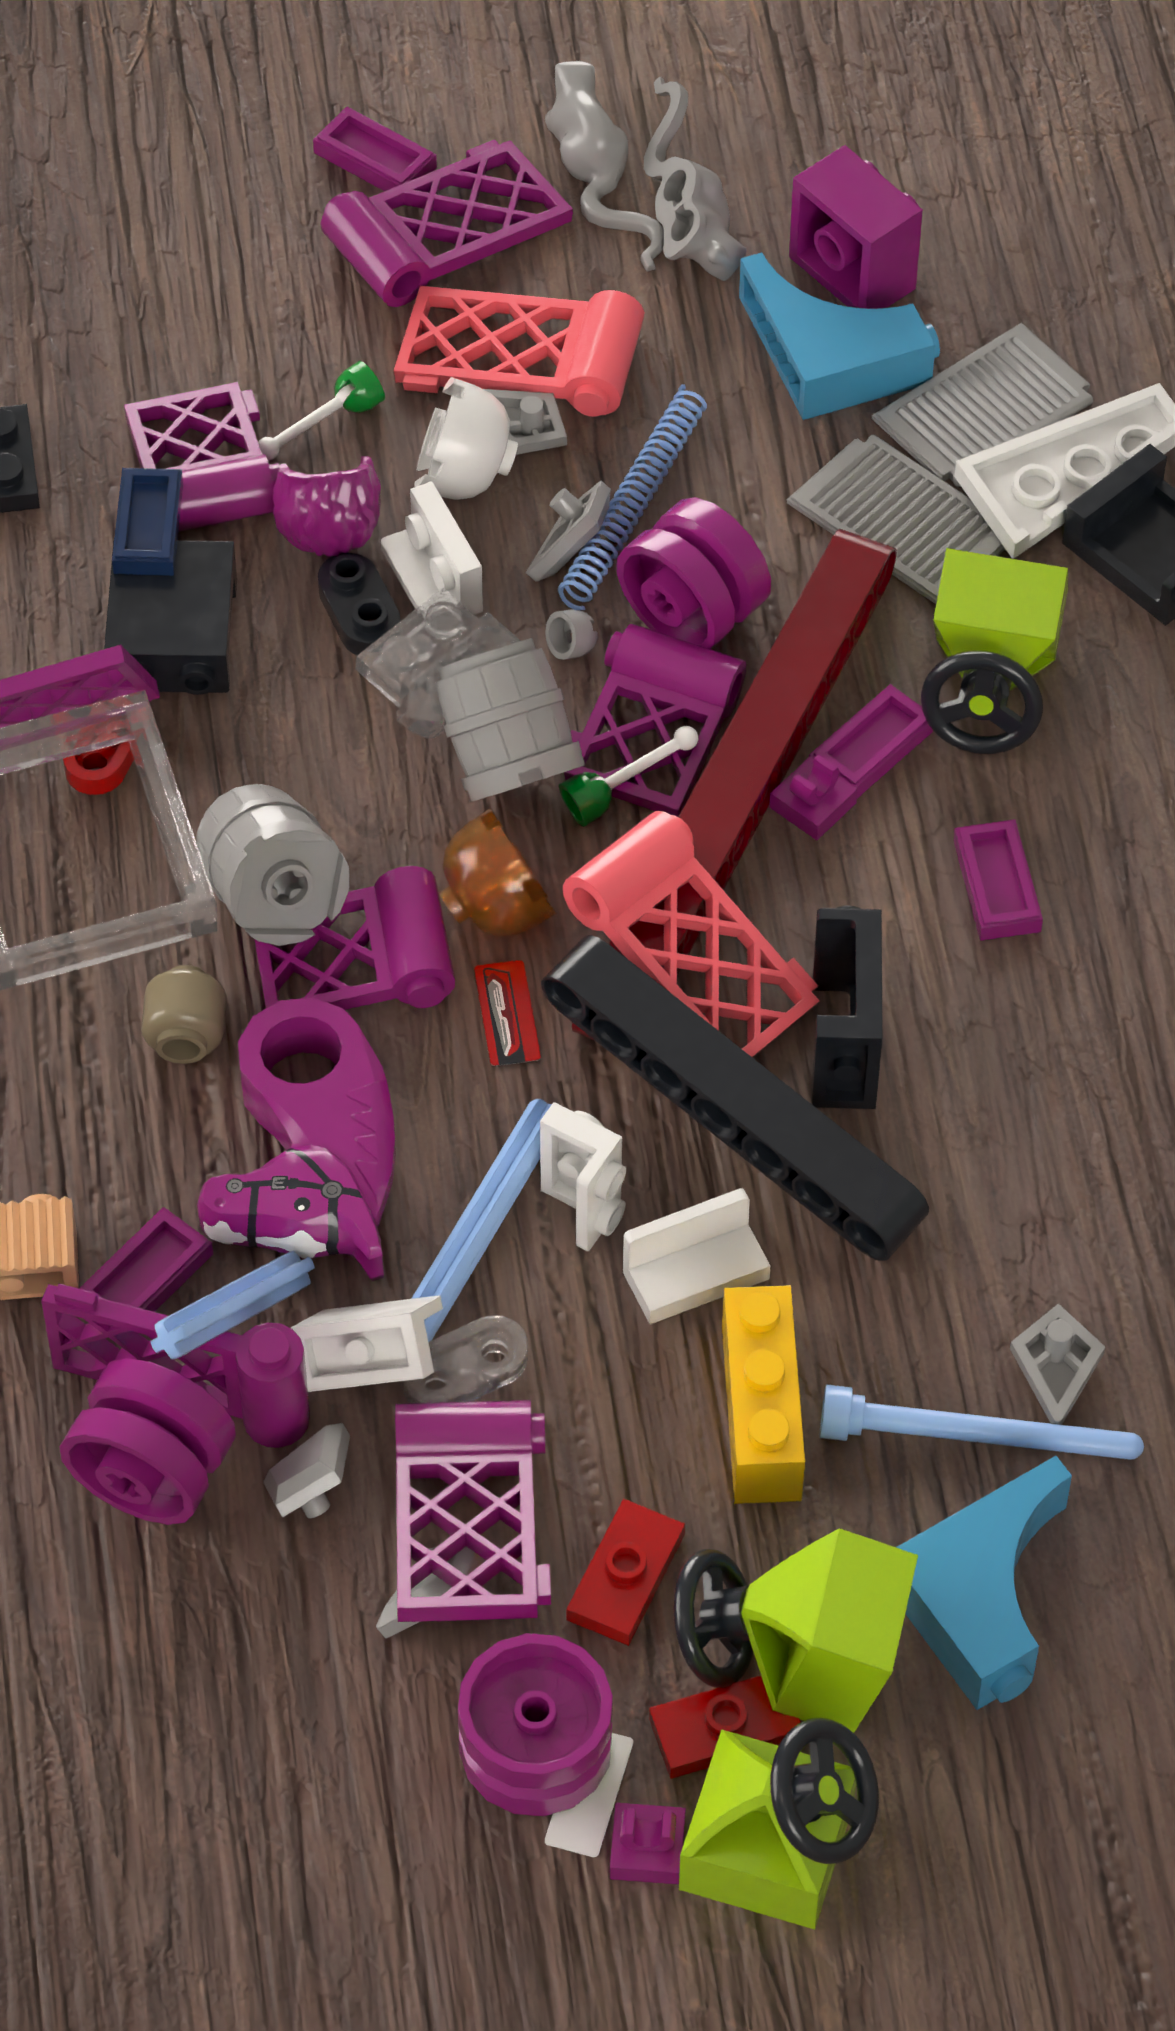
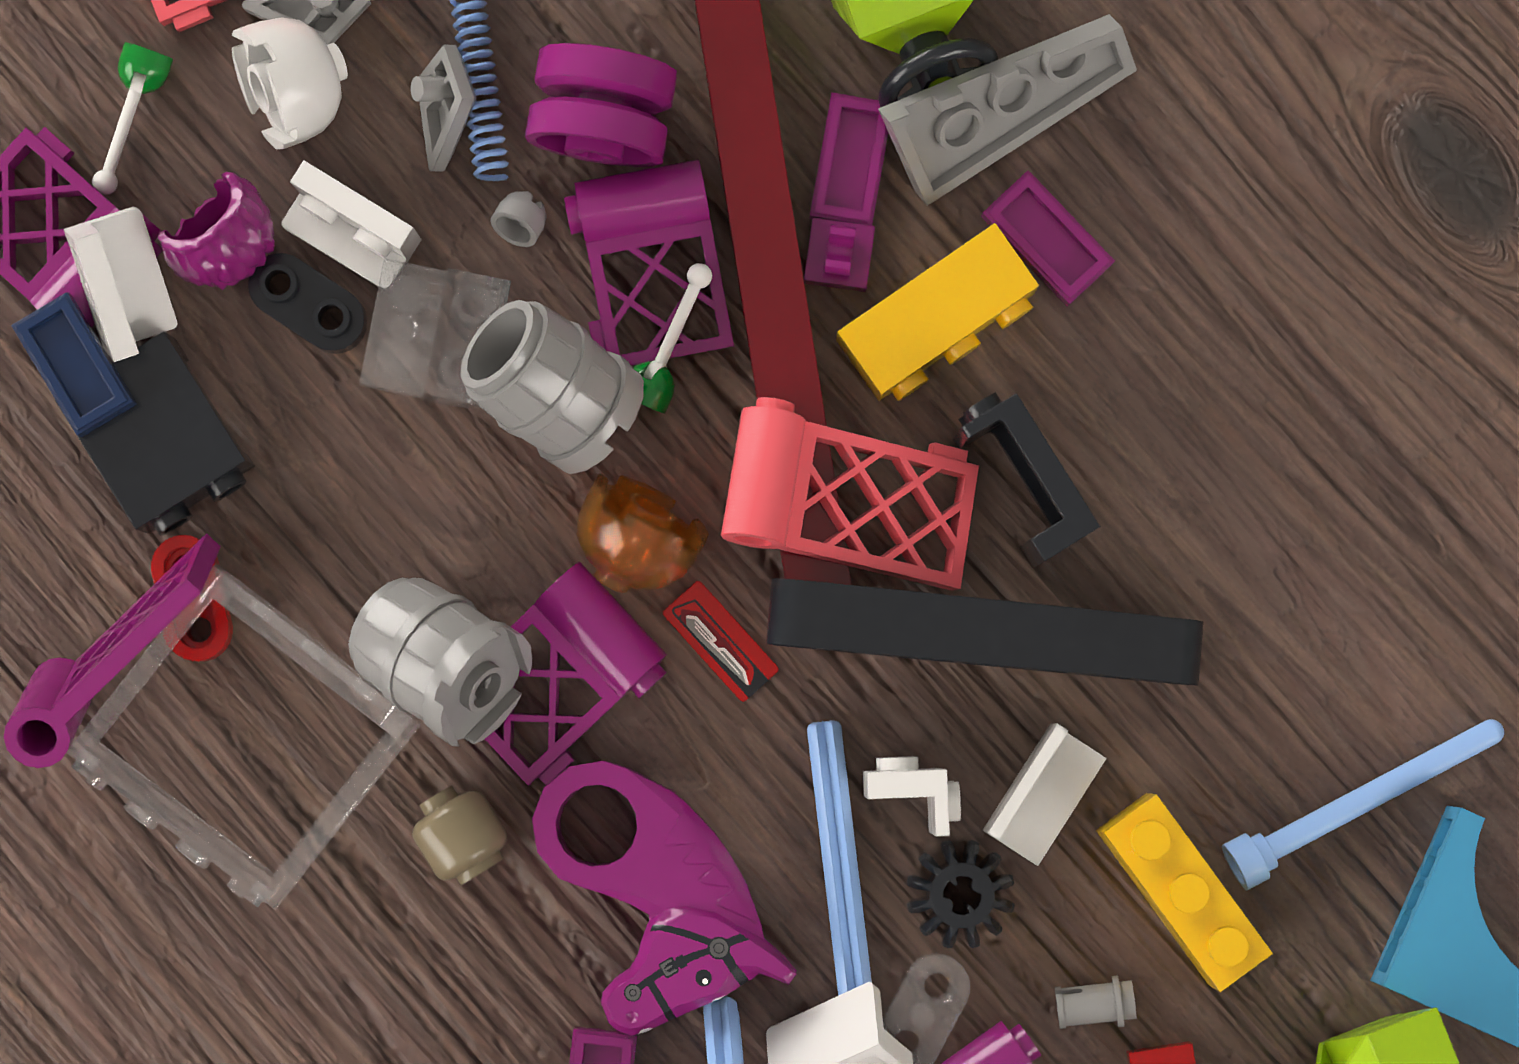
camera: 35 degrees left, 30 degrees up
(230, 488) = (121, 280): none -> white panel
(567, 1289) = (977, 880): none -> black gear
(623, 1445) = (1096, 1003): none -> light grey pin
(882, 865) = (938, 314): none -> yellow brick
(1011, 752) = (992, 110): none -> light grey wing
(1057, 1360) = (1389, 693): light grey piece -> none

